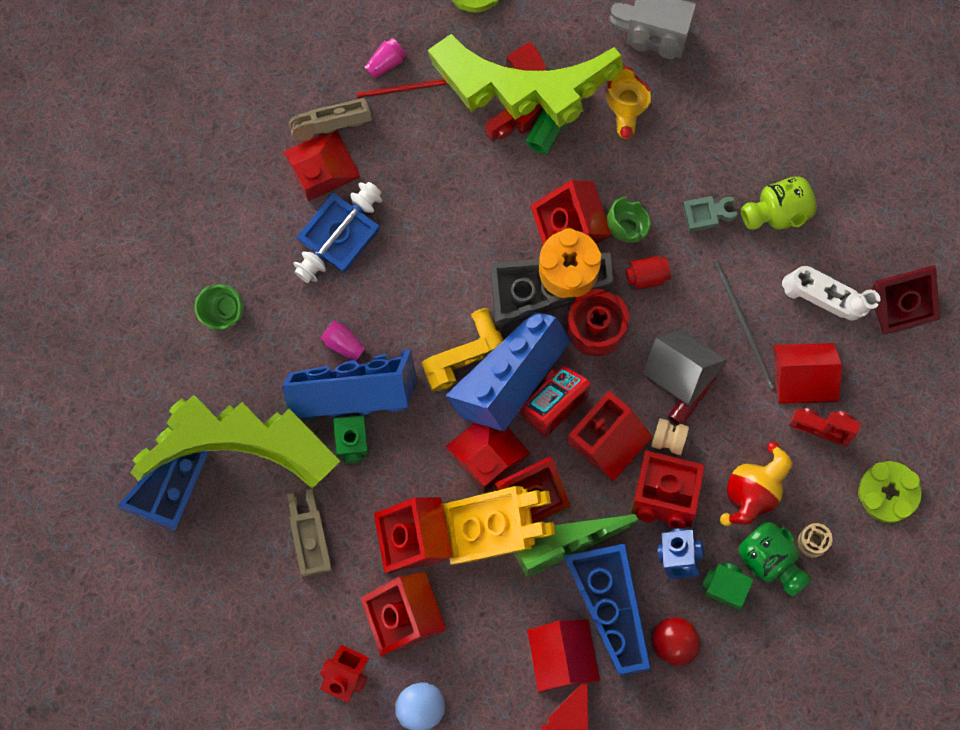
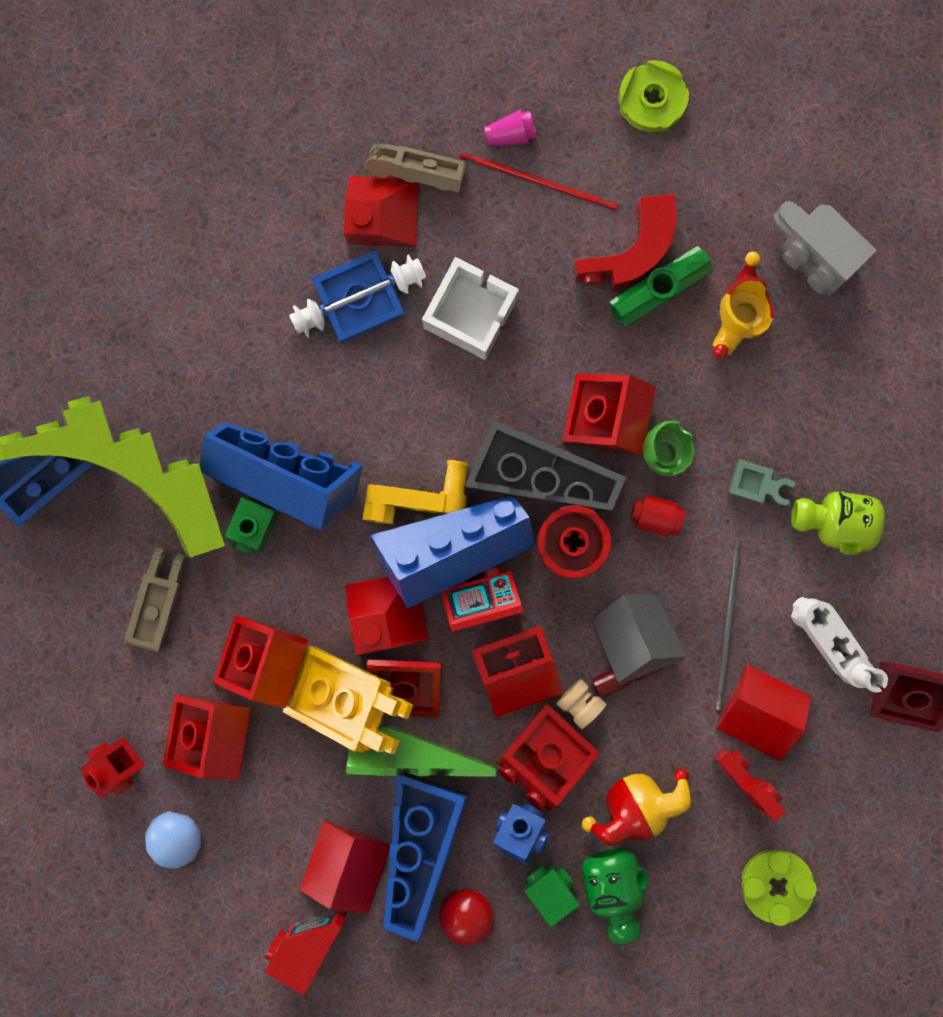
camera: 30 degrees right, 10 degrees up
(218, 298) = (179, 311): bright green hair -> none
(342, 340) = (299, 416): dark pink cone -> none
(427, 202) = (466, 311): none -> white piece
(520, 90) = (631, 246): lime arch -> none
(570, 280) = (582, 450): light orange brick -> none
(811, 545) = (664, 890): tan wheel -> none

